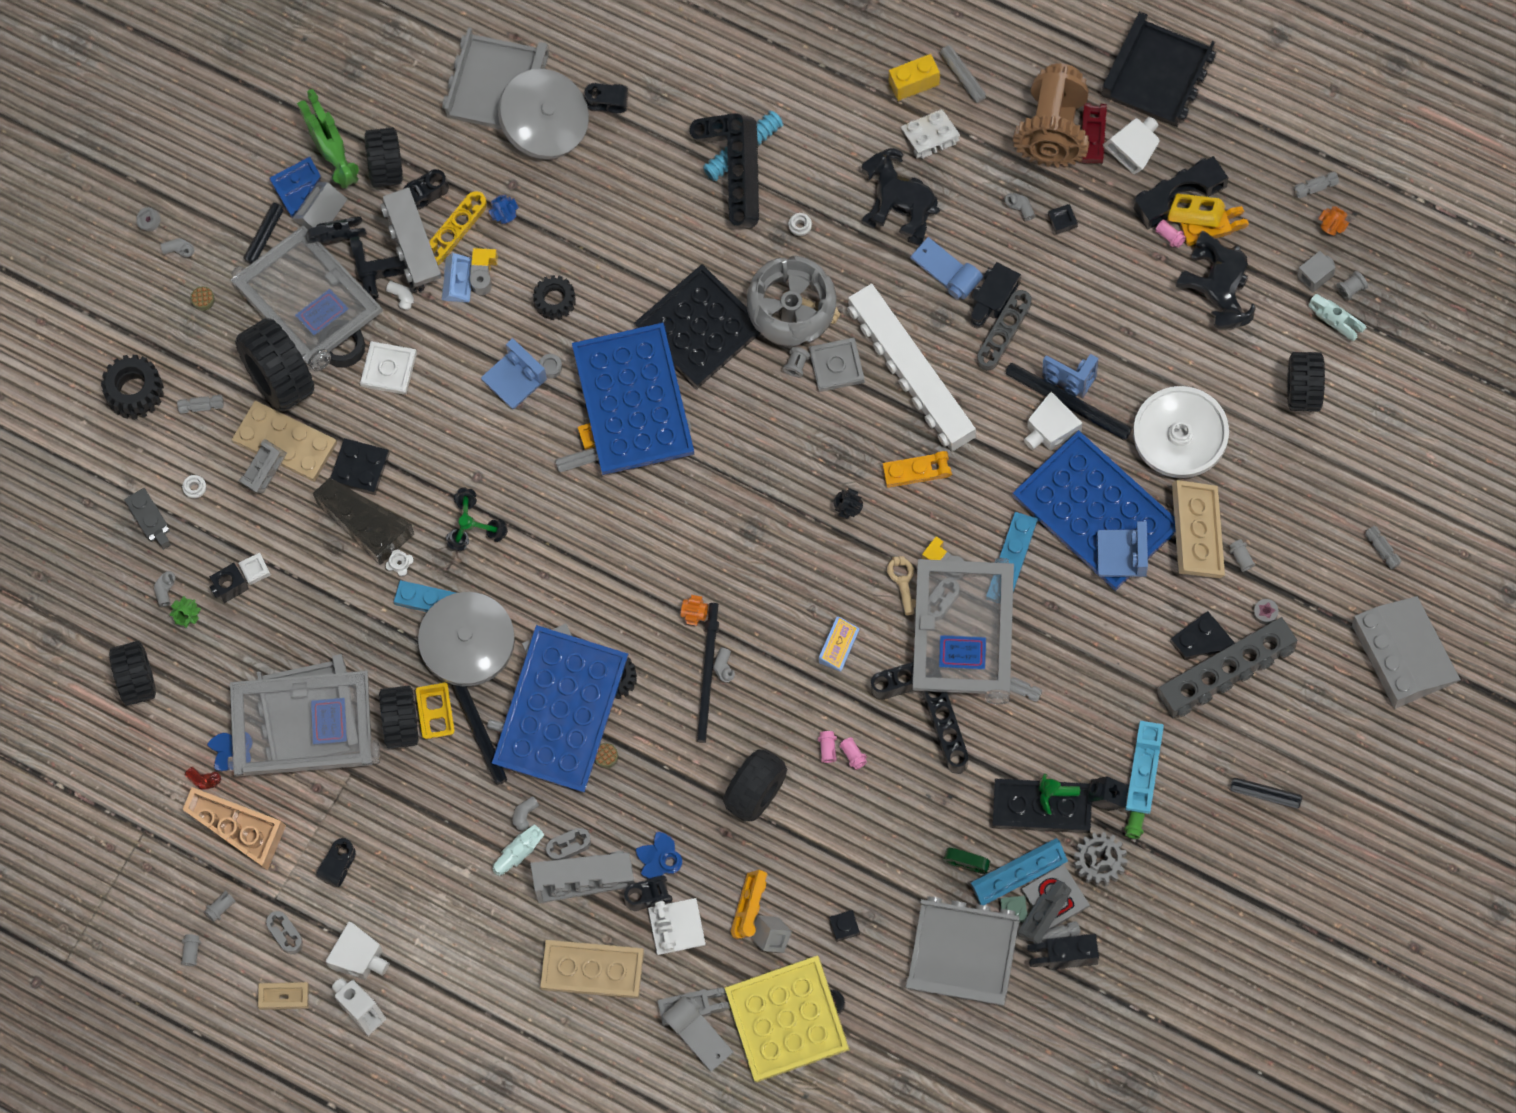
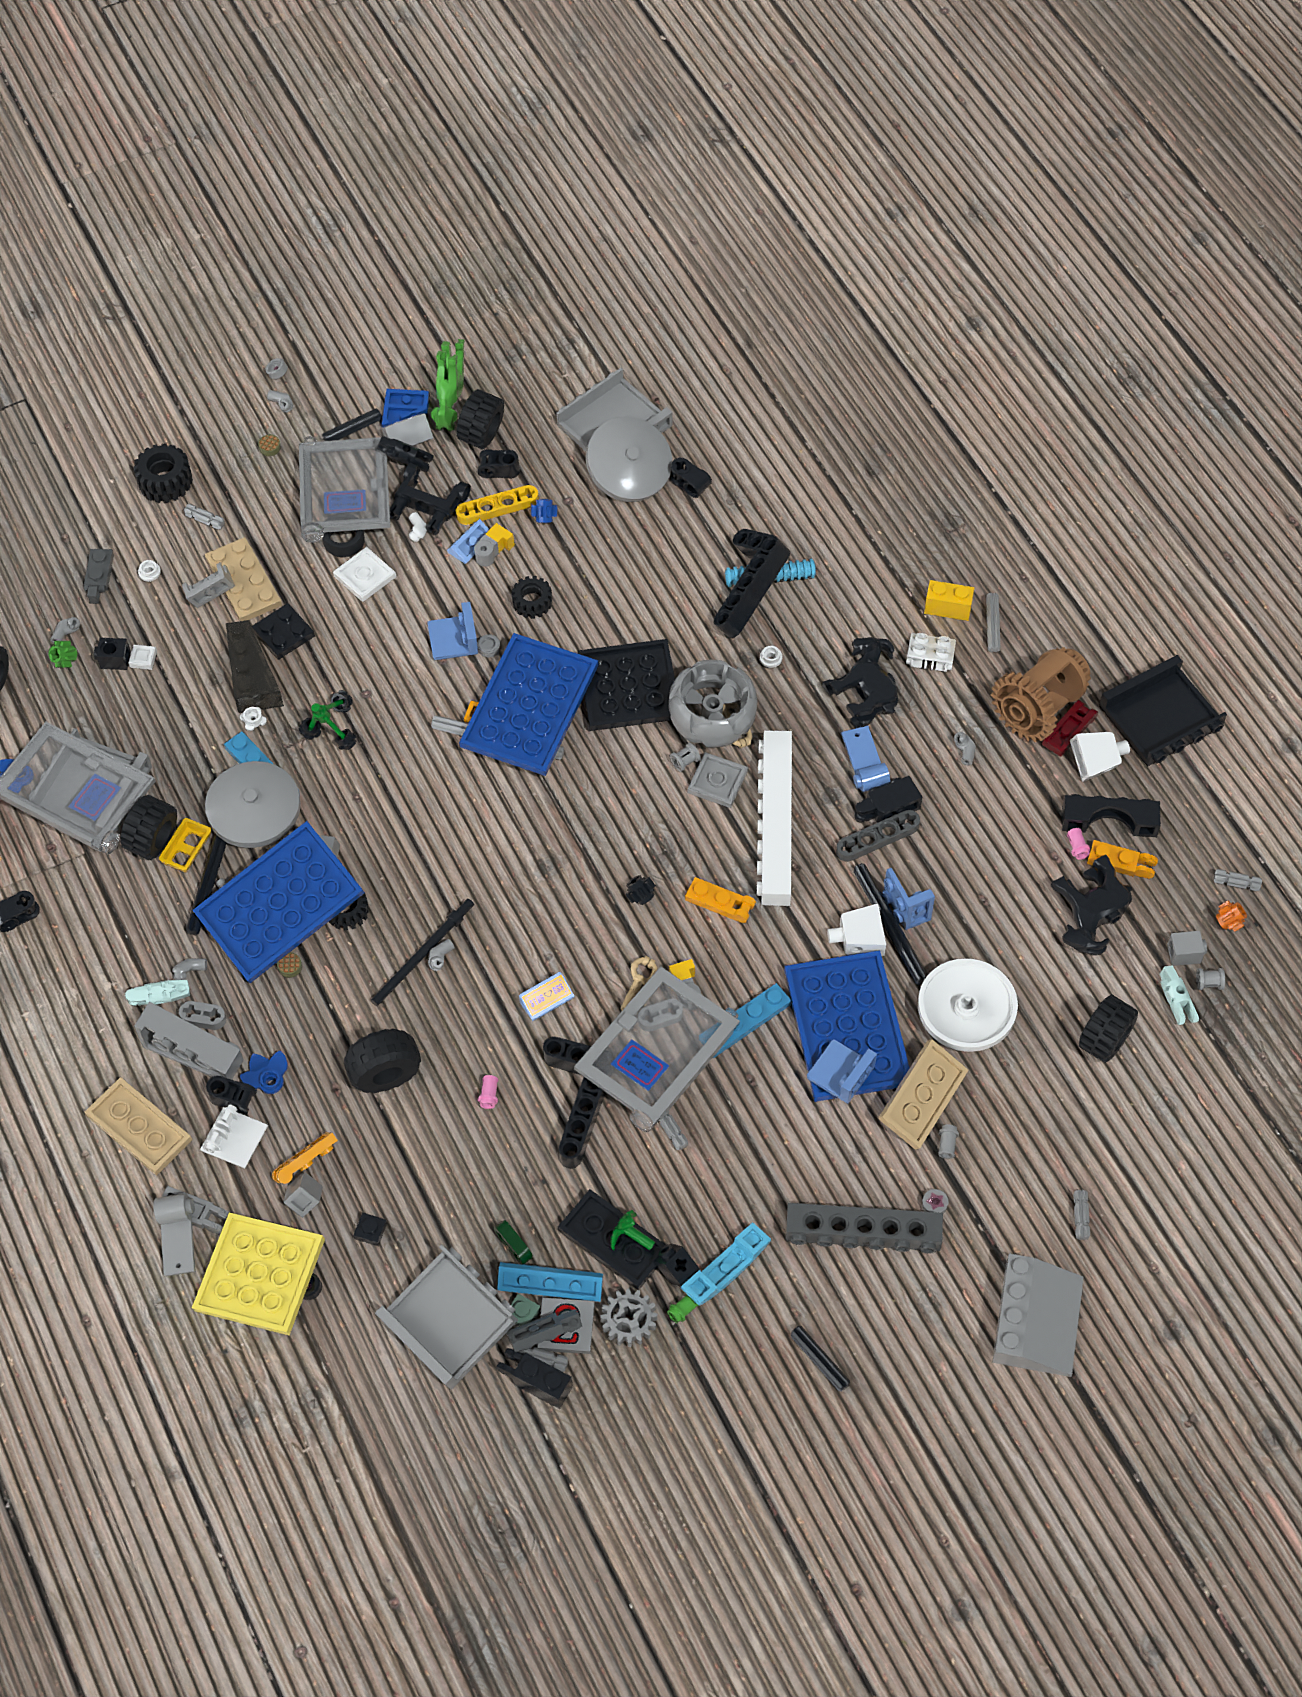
camera: 30 degrees right, 10 degrees down
(274, 364) = (272, 512): black tyre -> none
(410, 237) = (451, 483): light grey wedge -> none
(694, 610) = (449, 895): orange gear -> none
(827, 744) = (472, 1072): bright pink pin -> none
(1062, 219) = (993, 778): black plate -> none
(1192, 214) = (1108, 837): yellow piece -> none
(1201, 638) = (860, 1188): black wing -> none

